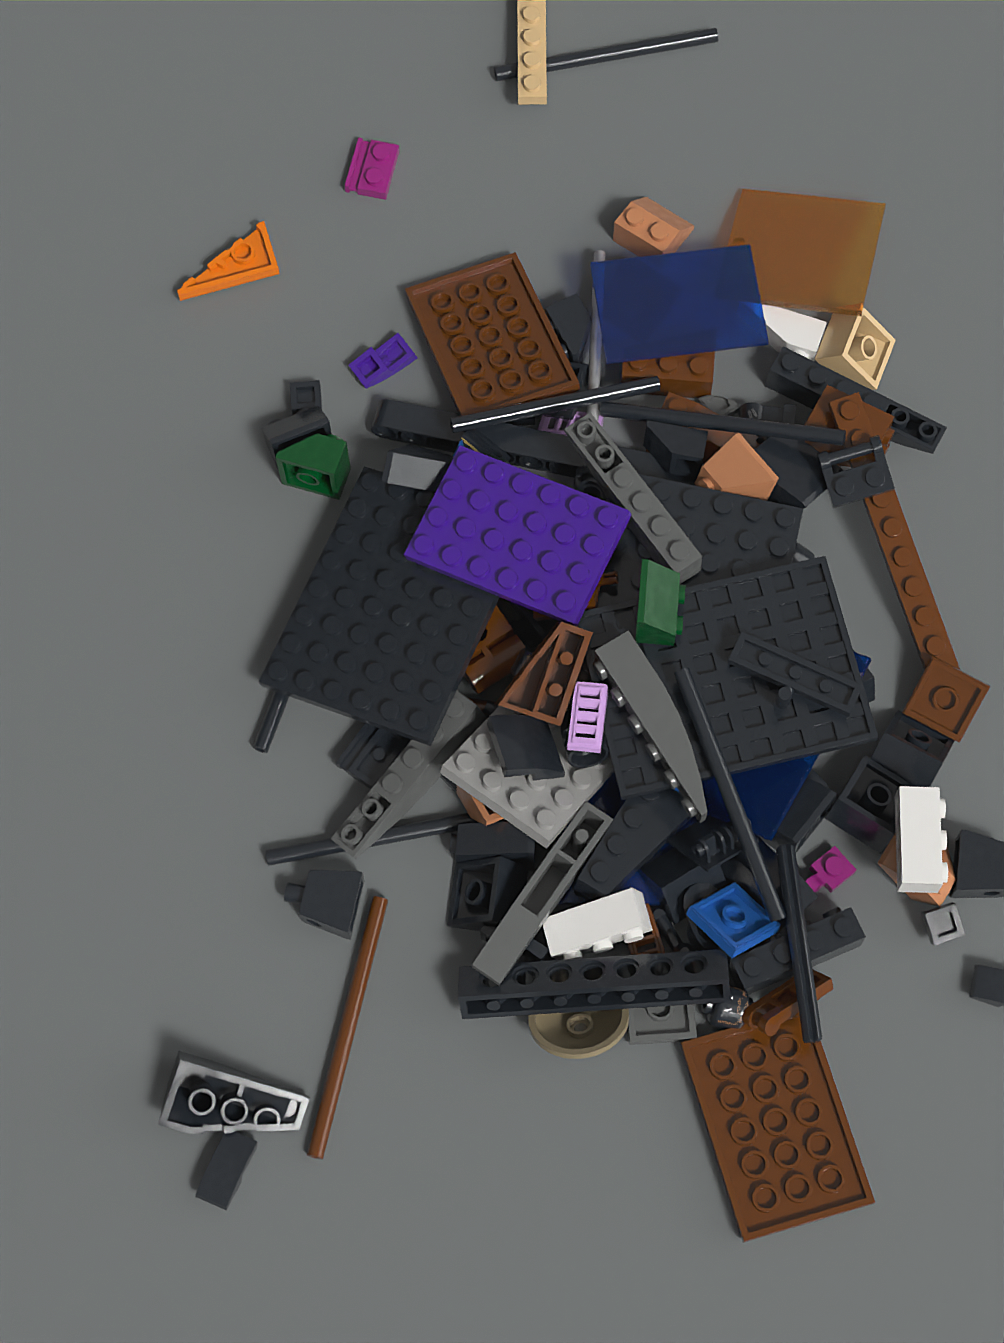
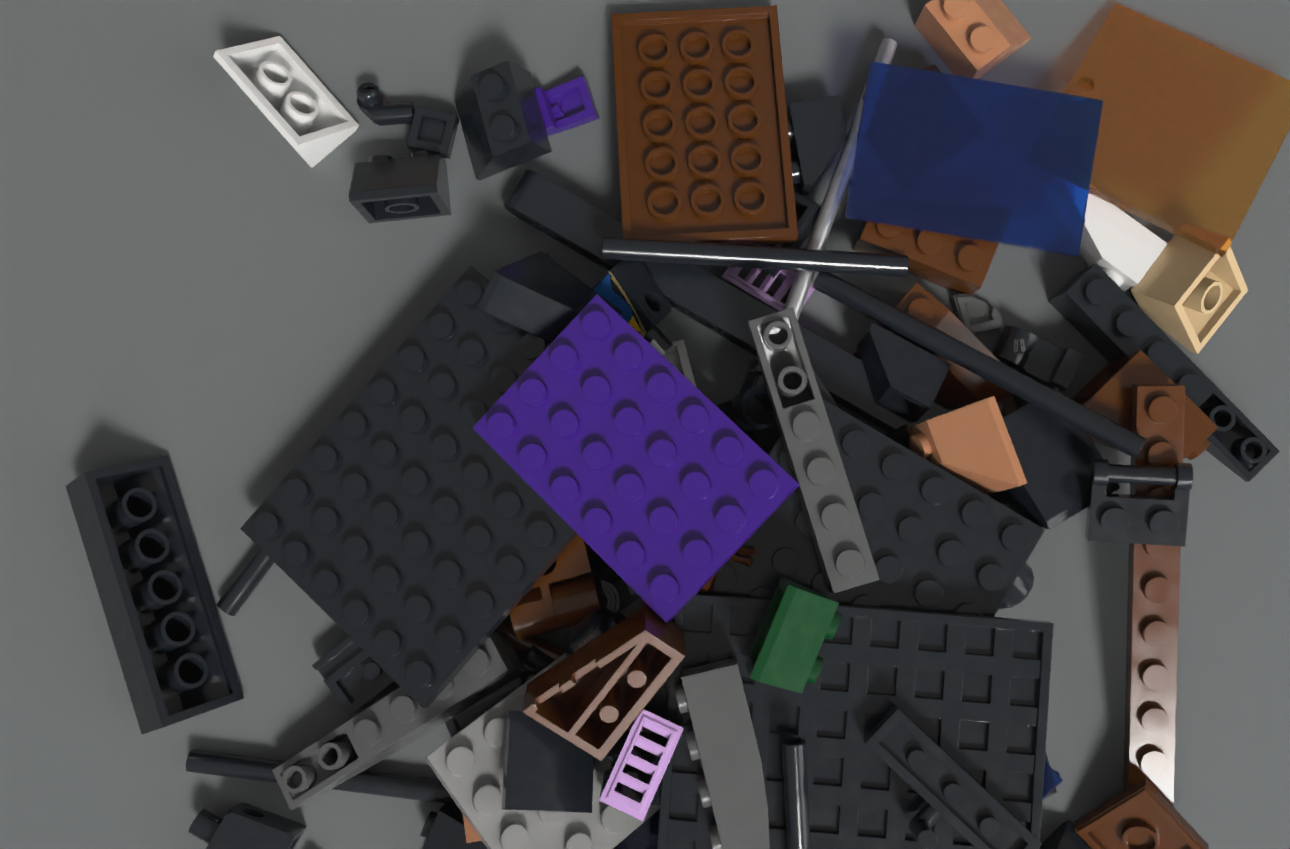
camera: 20 degrees right, 15 degrees up
(197, 405) = (289, 96): none -> white slope
(206, 750) = (153, 592): none -> black slope
(265, 395) = (380, 110): none -> black arm
(316, 465) = (413, 239): dark green slope -> none
(351, 375) = (501, 119): none -> black slope

